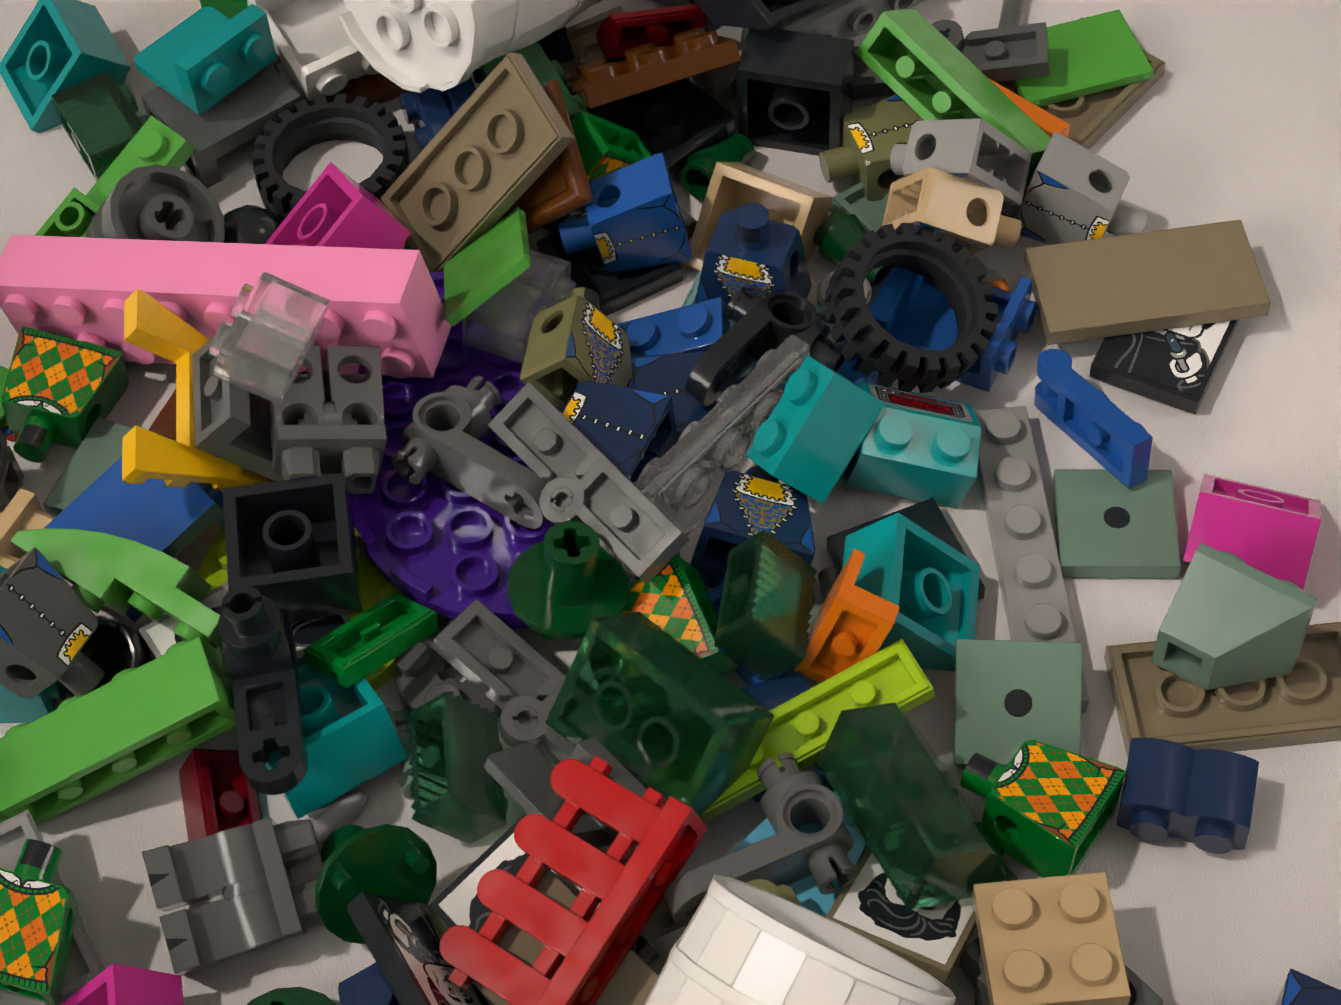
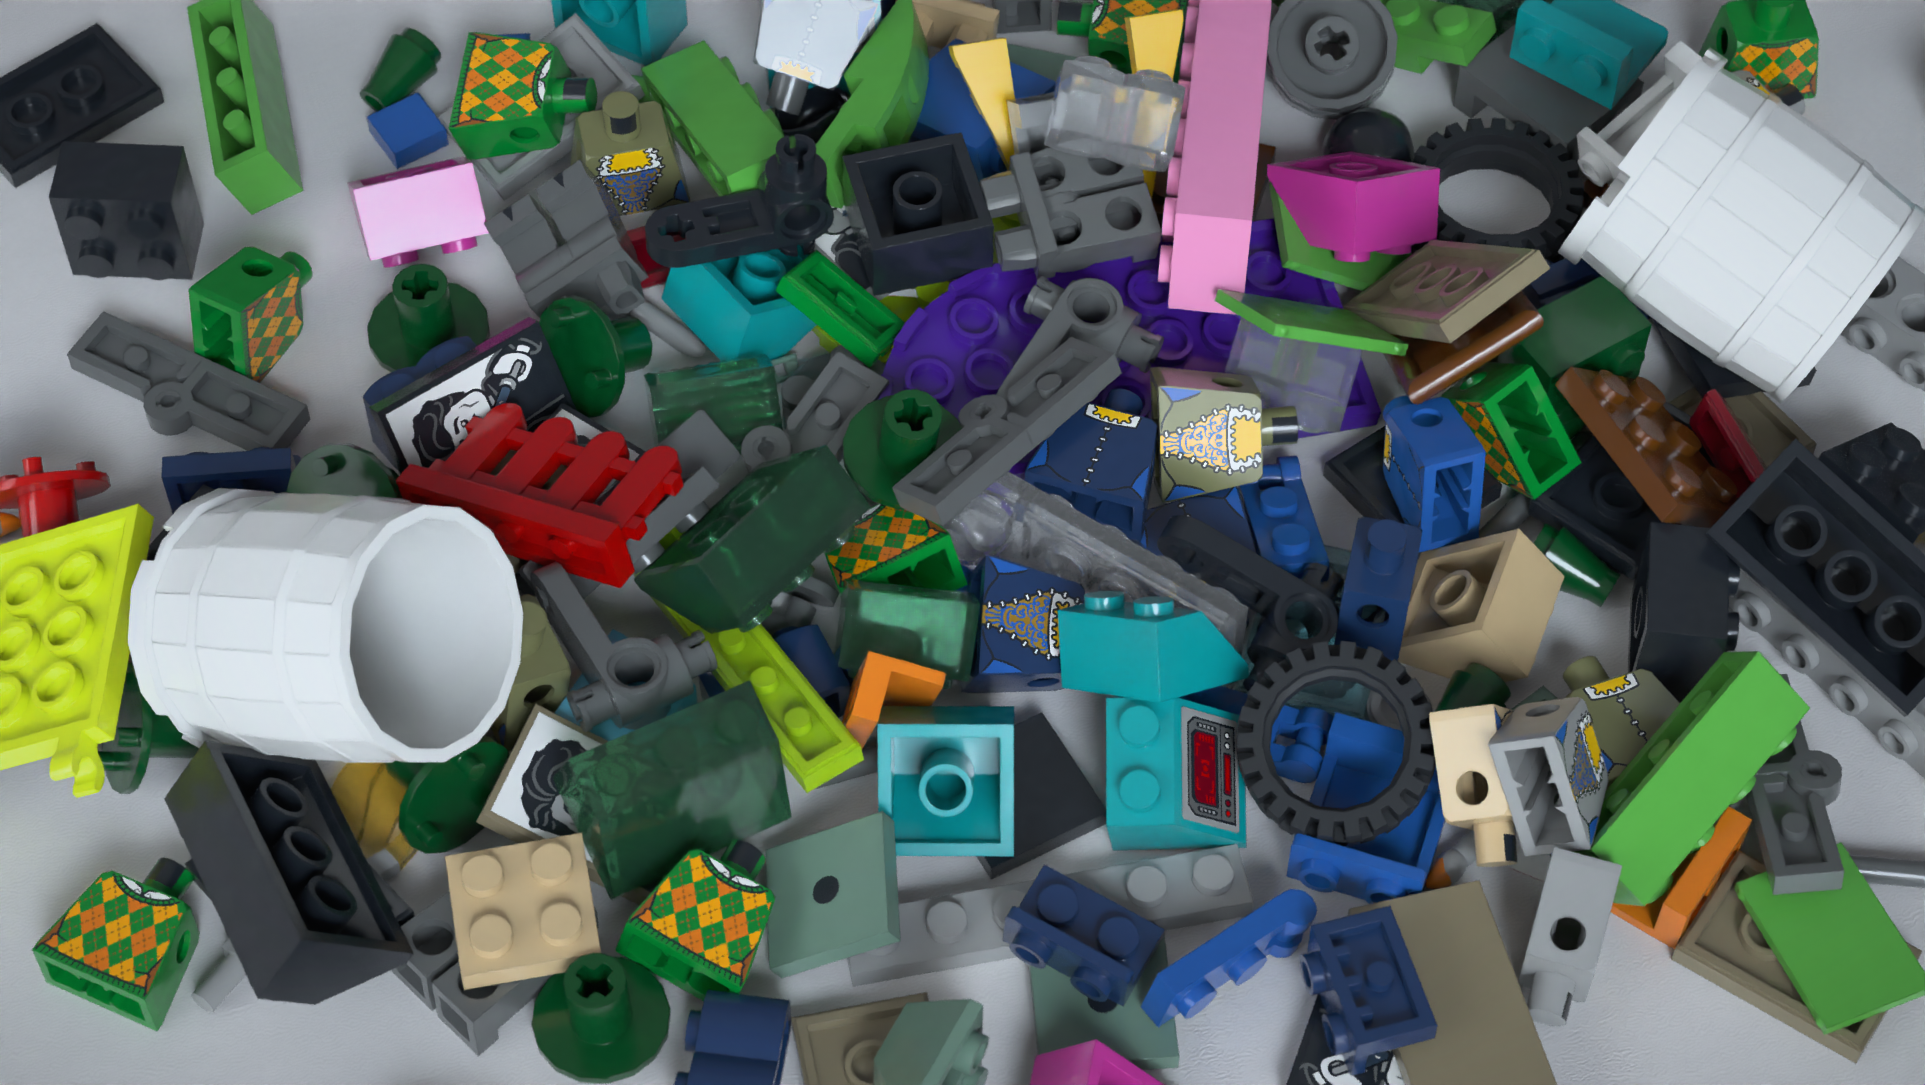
camera: 80 degrees right, 0 degrees up
(113, 821) = (631, 154): none -> olive torso
(1070, 515) = (1081, 936): none -> dark blue bracket
(1133, 323) = (1366, 987): none -> dark blue bracket
(1150, 904) = (601, 1019): none -> dark green piece

